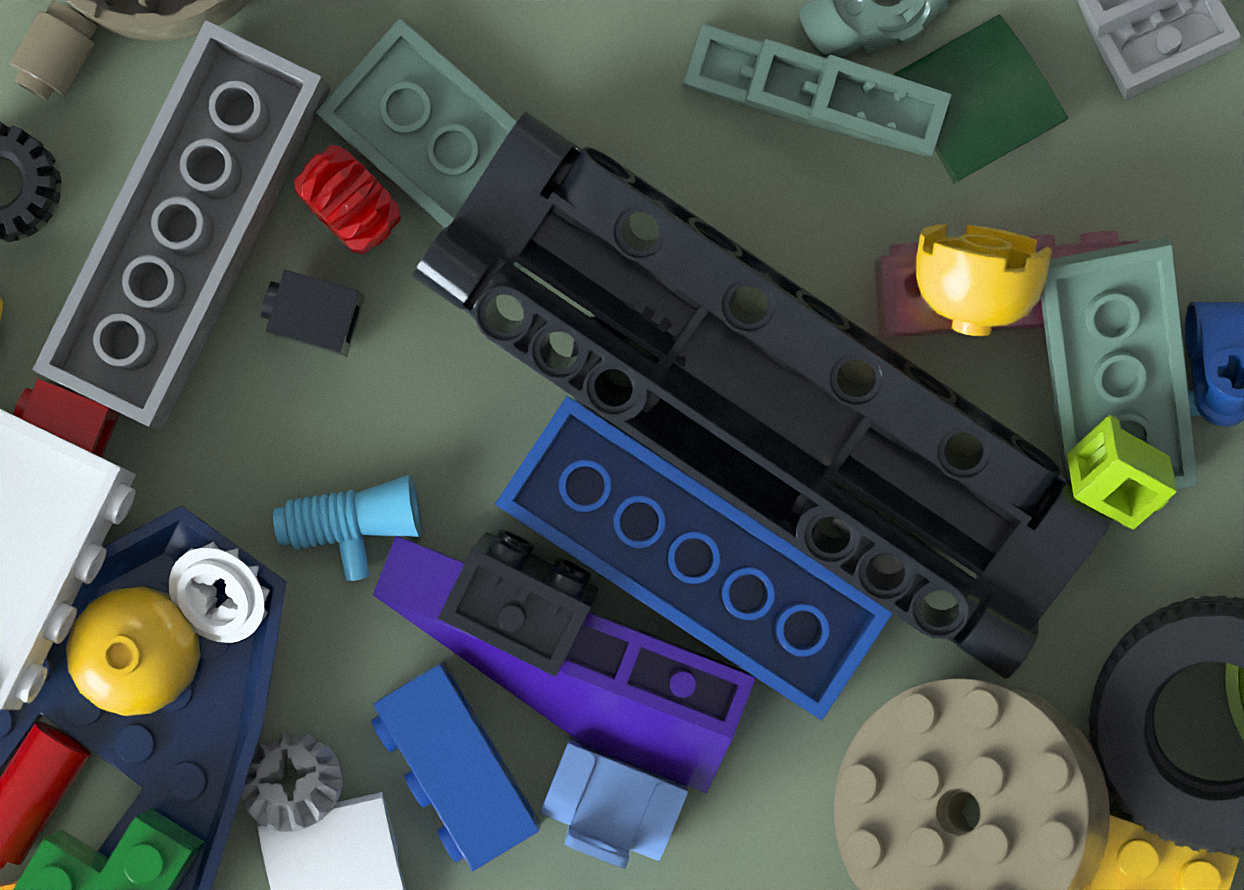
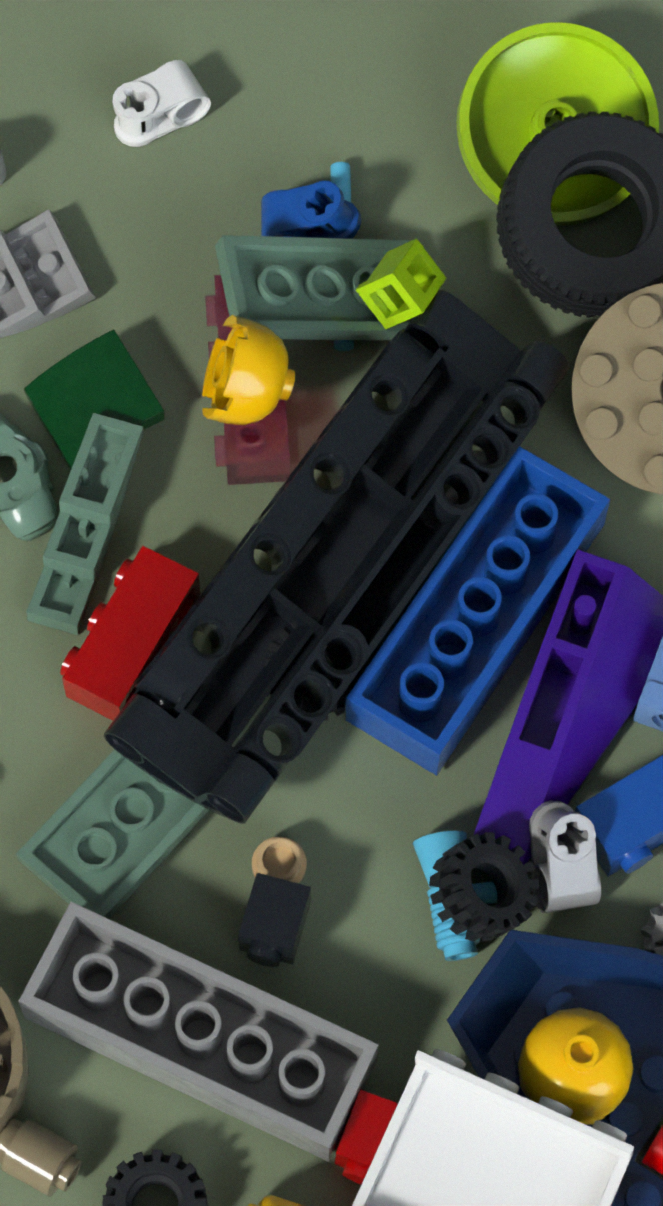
camera: 90 degrees left, 20 degrees down
(194, 593) = (543, 978): white gear -> none
(334, 585) = (507, 875): none -> black tyre
(347, 199) = (175, 891): red gear -> none
(383, 646) = (566, 864): none -> light grey piece
(392, 320) = (280, 859): none -> tan plate
(520, 600) = (524, 731): black bracket -> none
(672, 144) = (128, 631): none -> red brick

